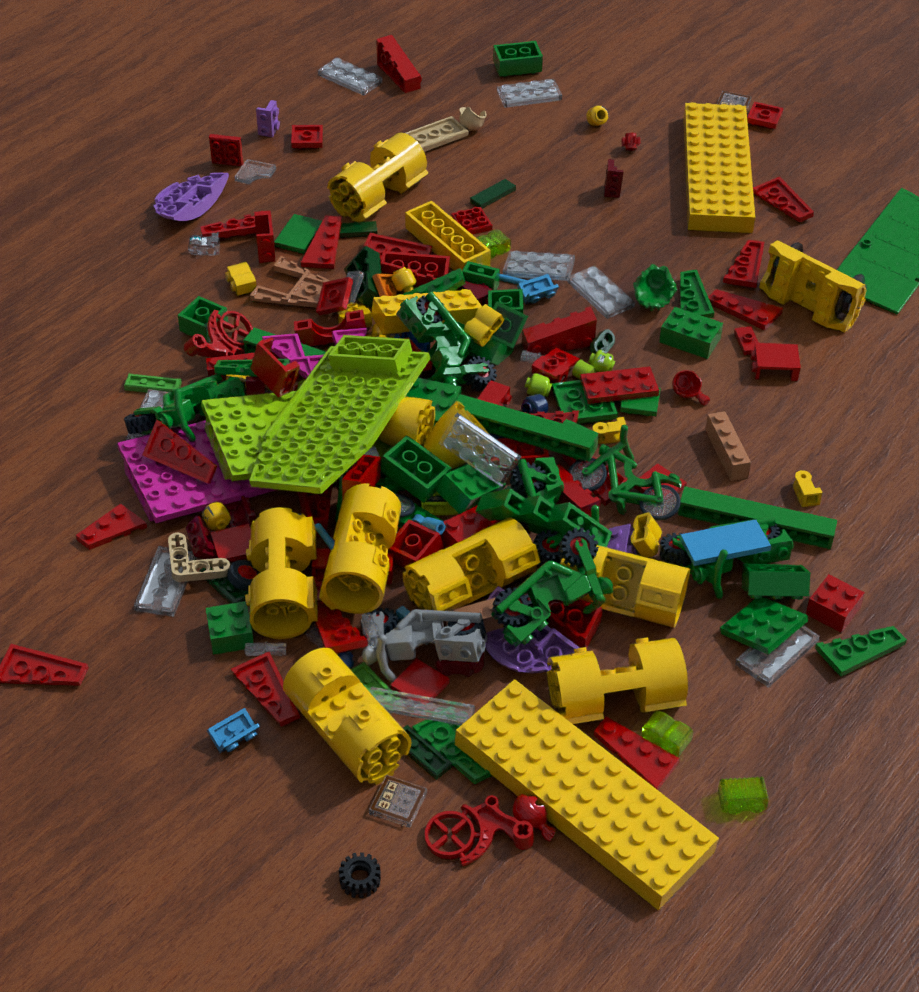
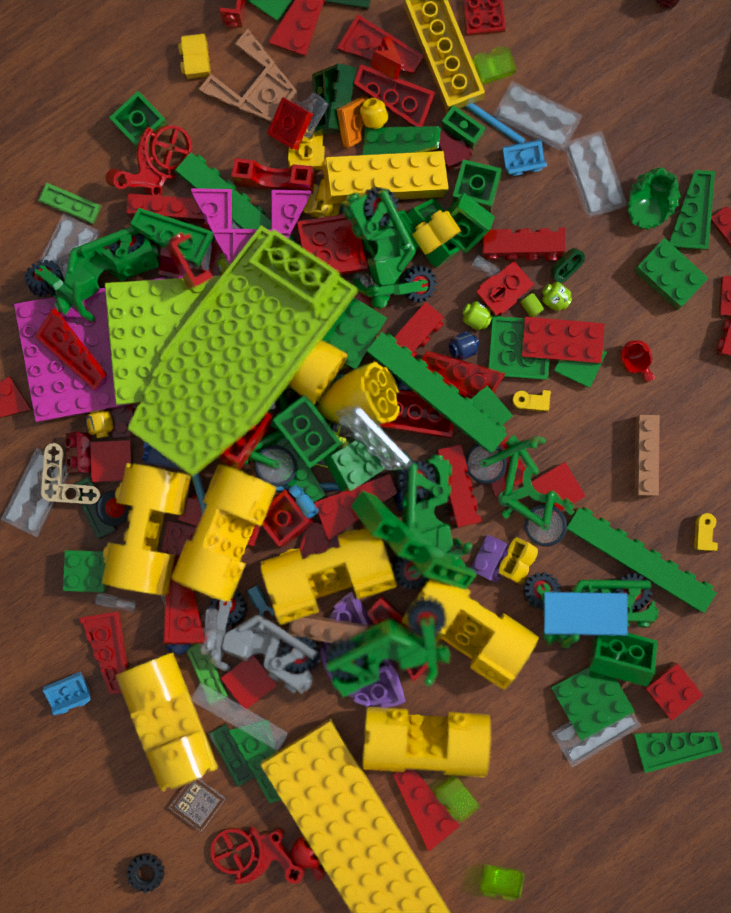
camera: 15 degrees right, 40 degrees up
(404, 243) = (387, 59): none -> red slope

